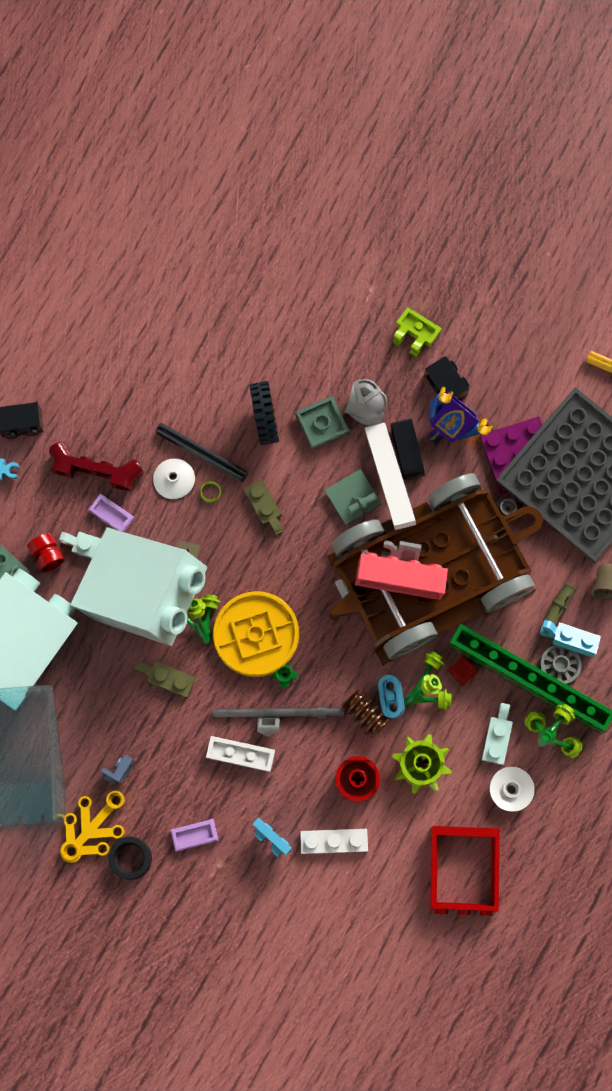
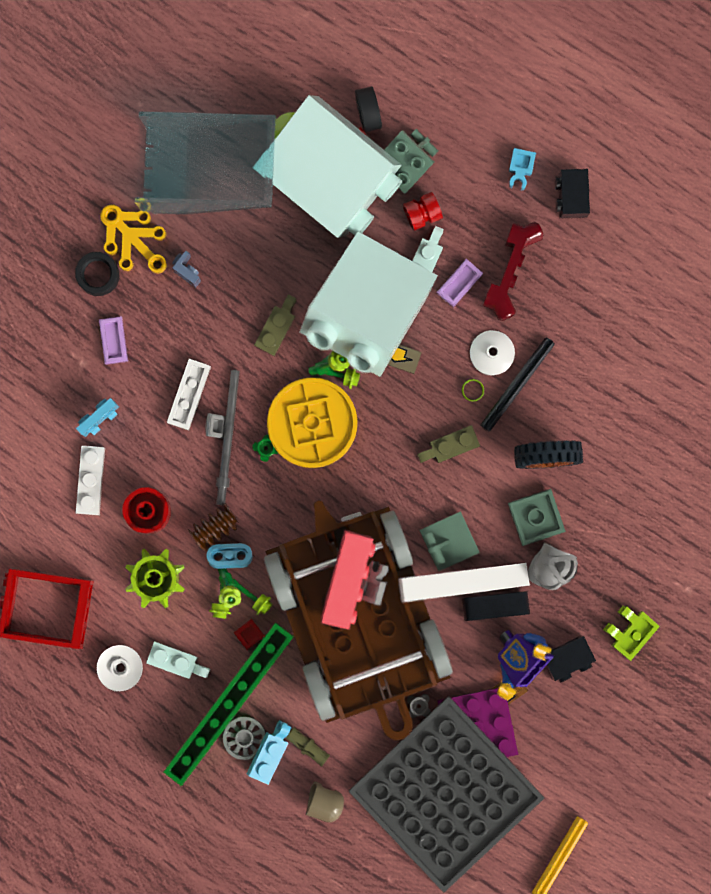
camera: 90 degrees right, 10 degrees up
(563, 714) = (163, 710): lime plant -> none

